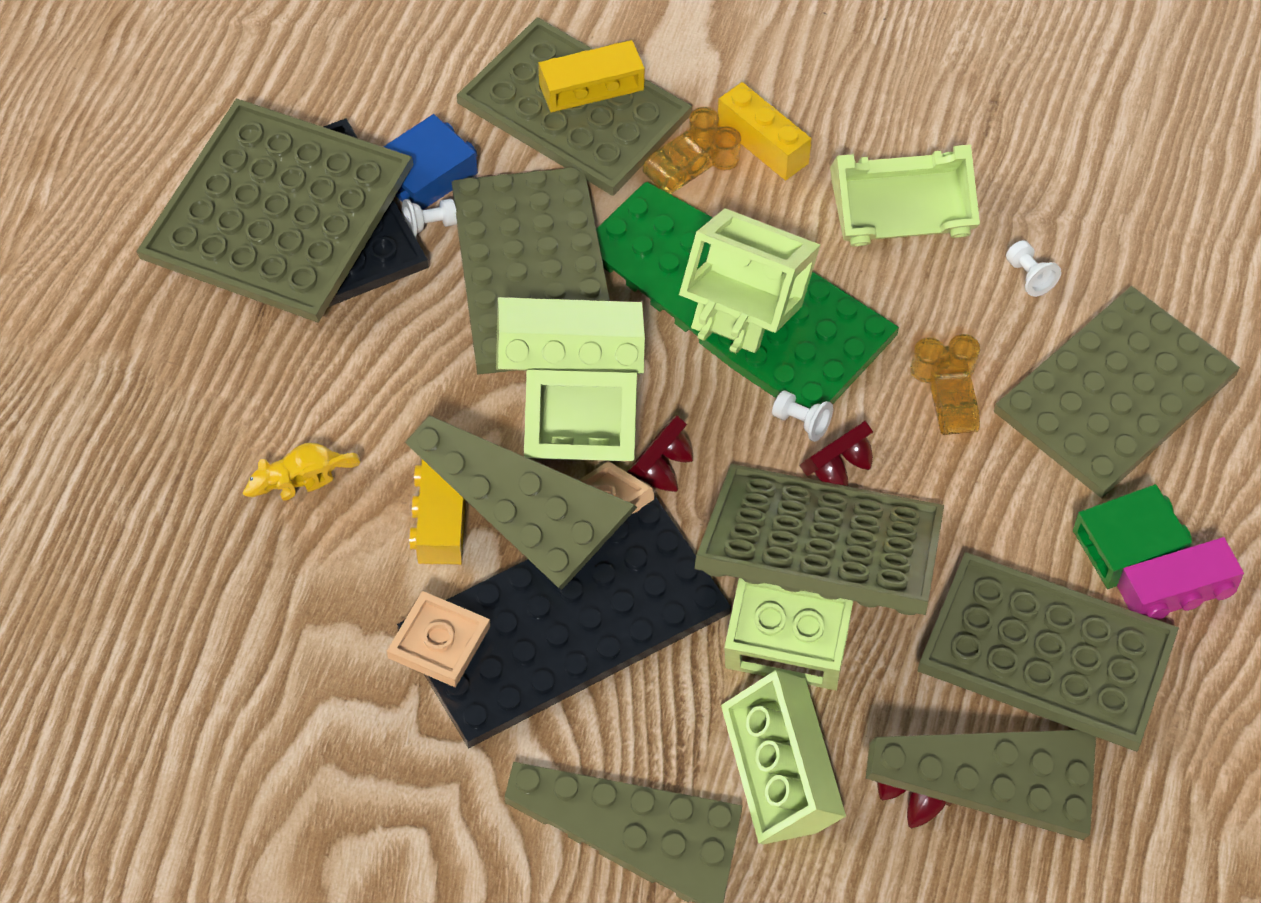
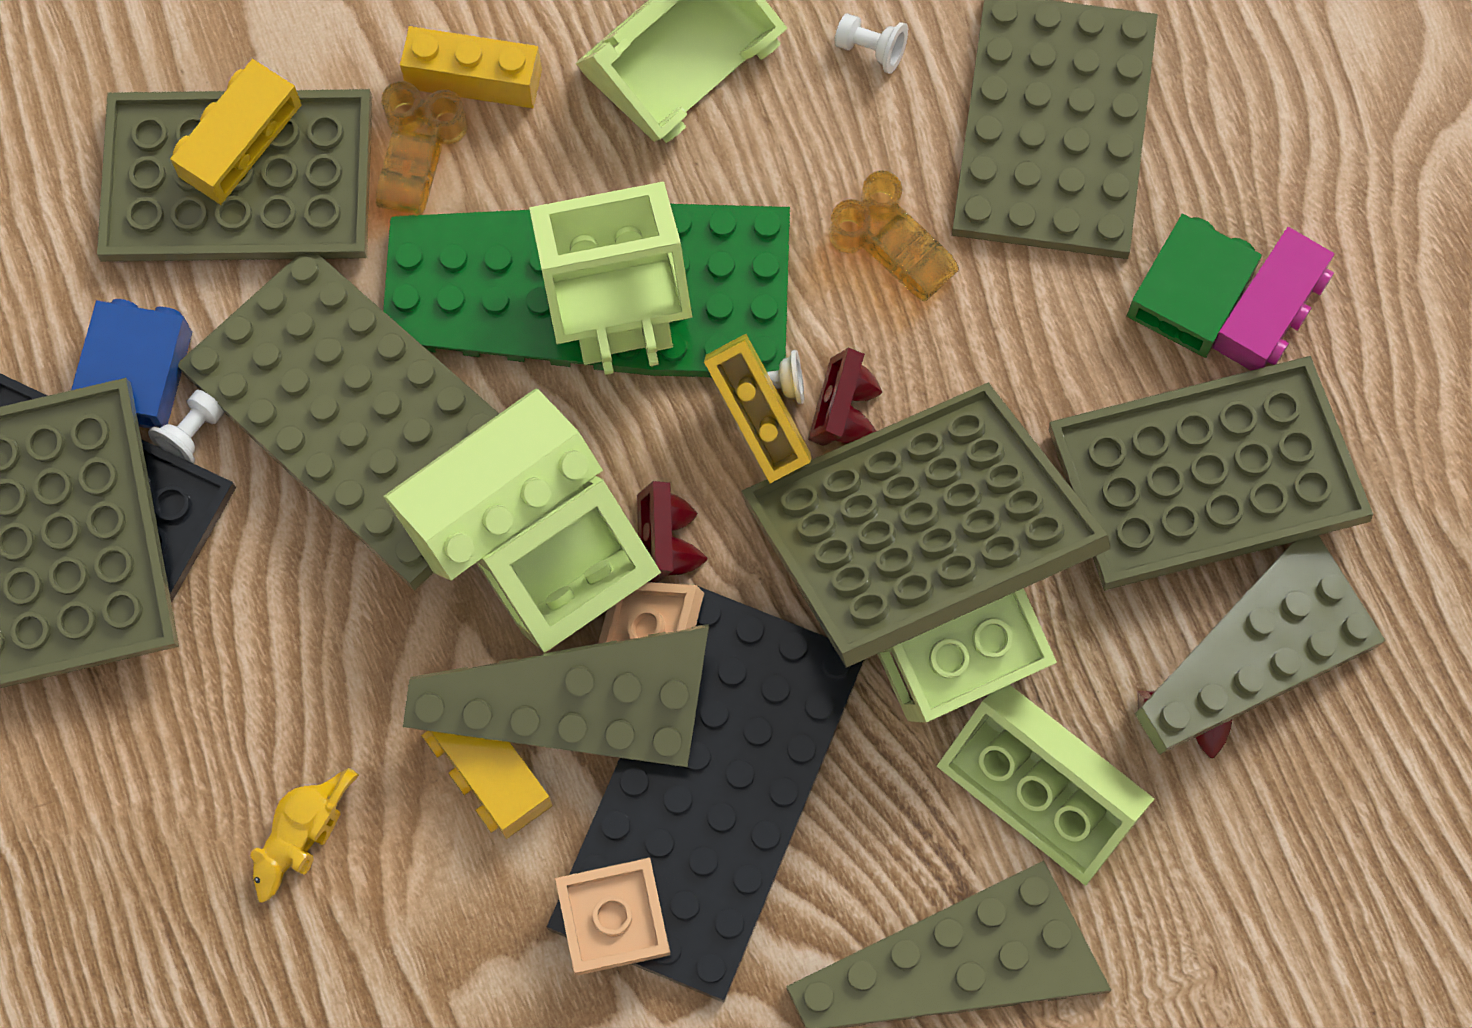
camera: 35 degrees left, 15 degrees up
(776, 414) = (757, 408): none -> yellow brick

